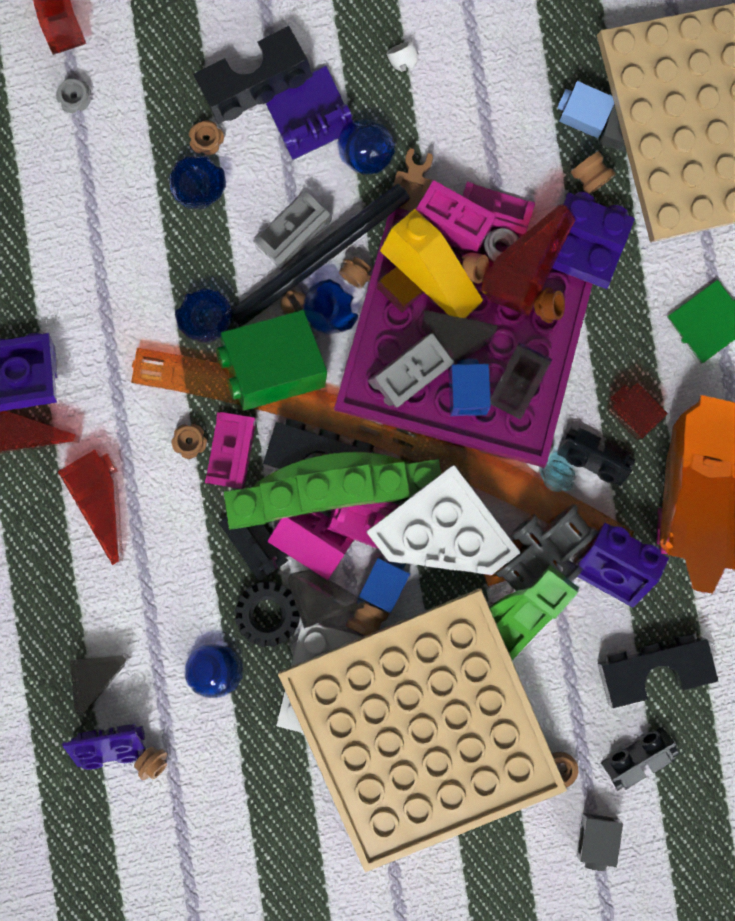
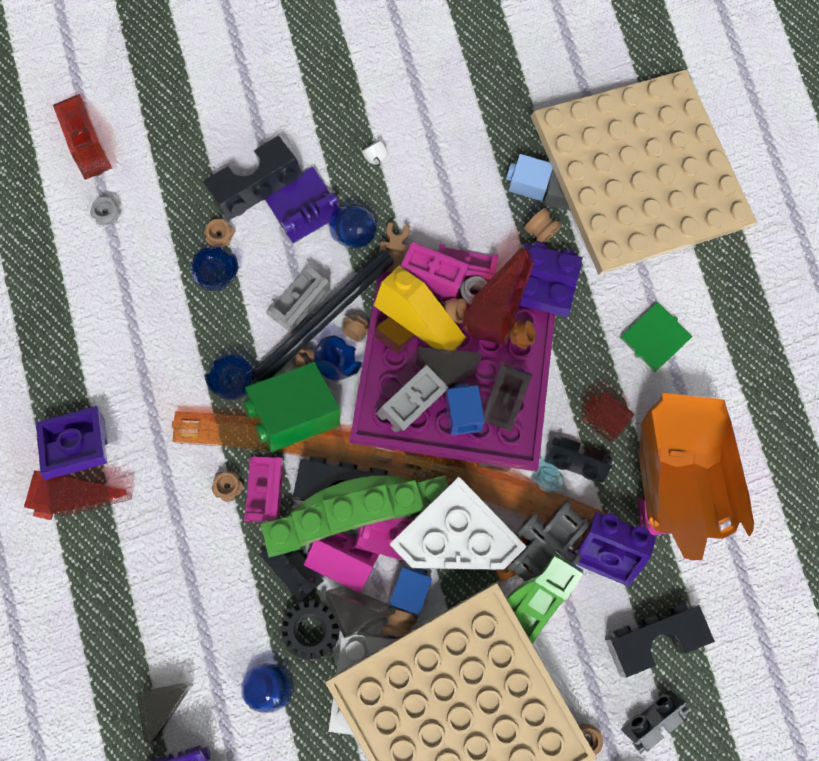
camera: 10 degrees left, 10 degrees down
(97, 496) = (150, 542): clear red slope -> none

